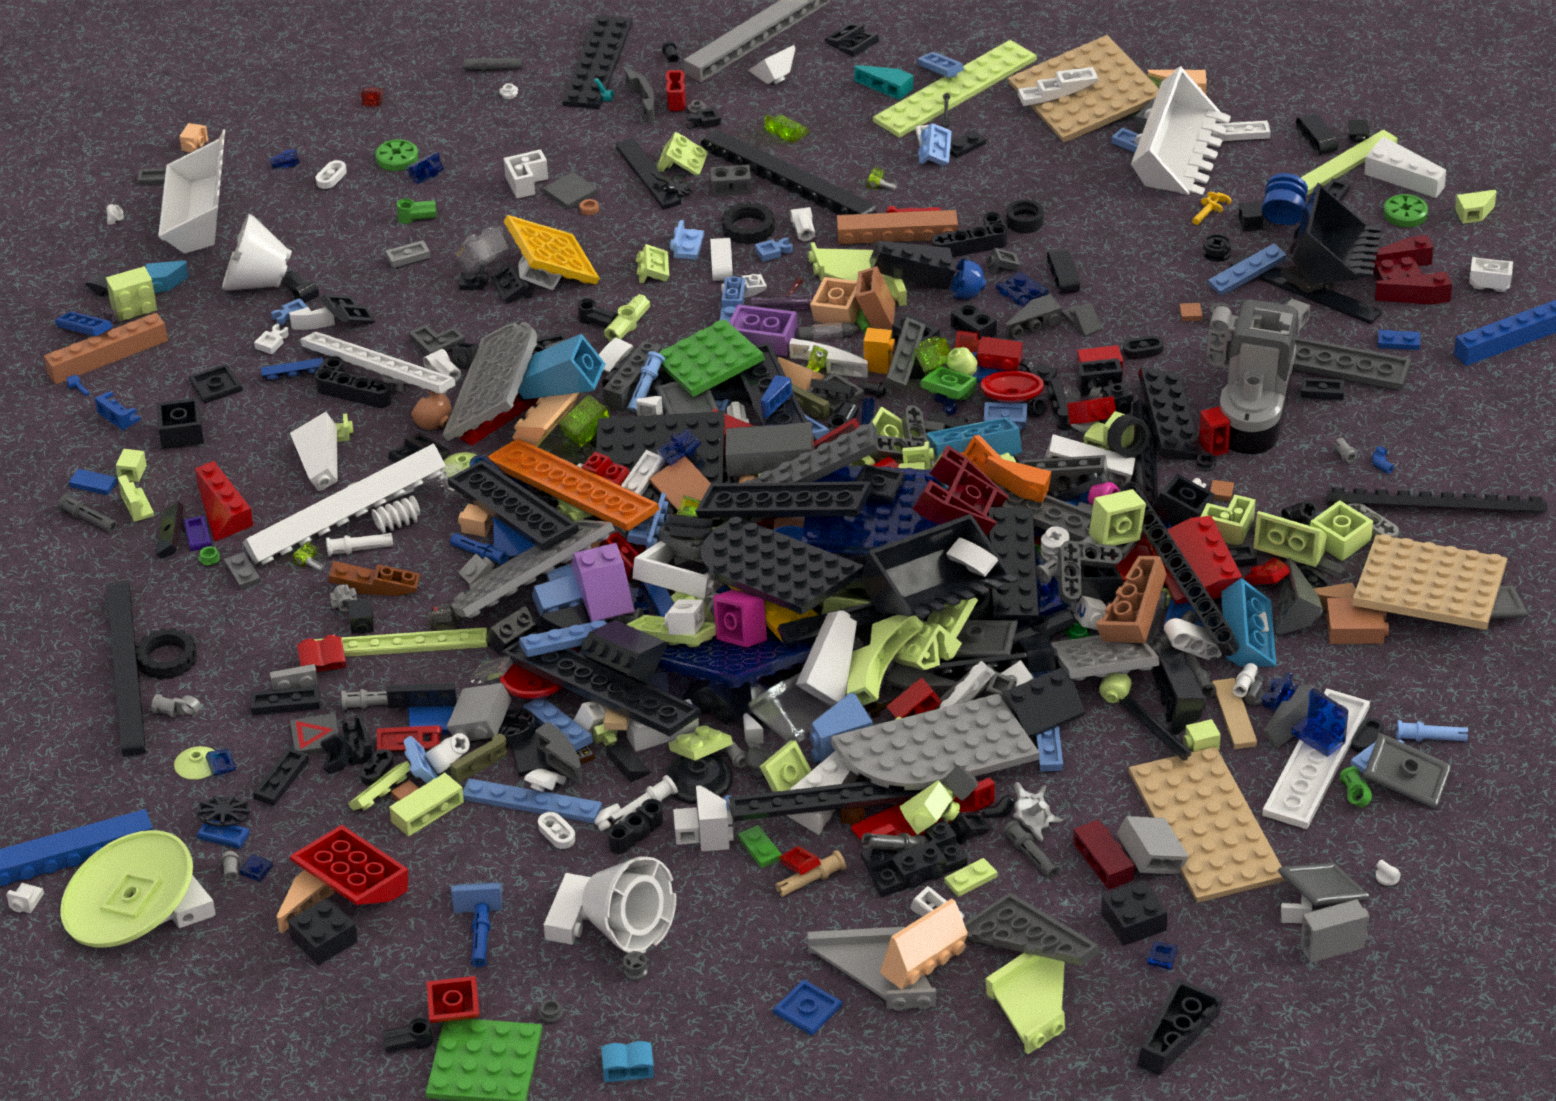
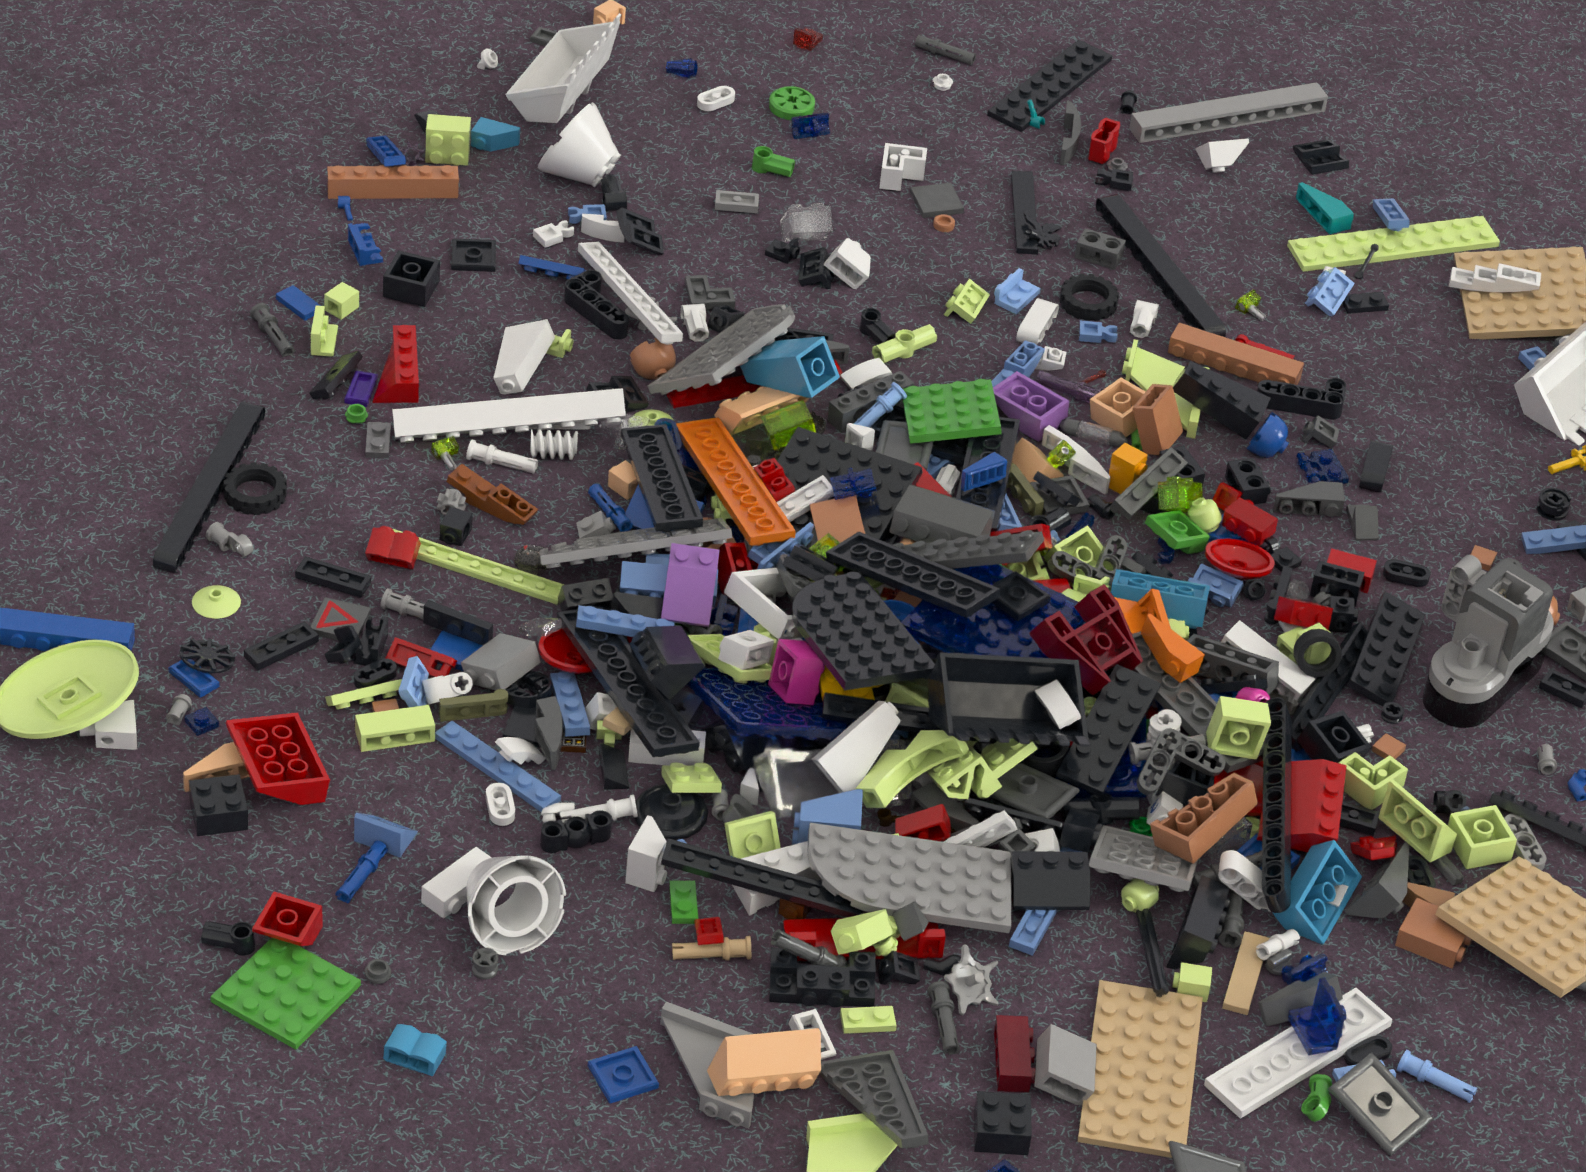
camera: 20 degrees right, 0 degrees up
(220, 761) = (234, 609): clear blue plate -> none
(294, 678) = (354, 559): light grey plate -> none
(551, 250) = (870, 249): yellow plate -> none
(683, 153) = (1070, 206): yellowish green bracket -> none
(686, 826) = (618, 851): white brick -> none
(785, 128) = (1191, 218): clear neon green bracket -> none
(1025, 225) = (1371, 406): black tyre -> none
(1214, 431) = (1415, 685): red brick -> none

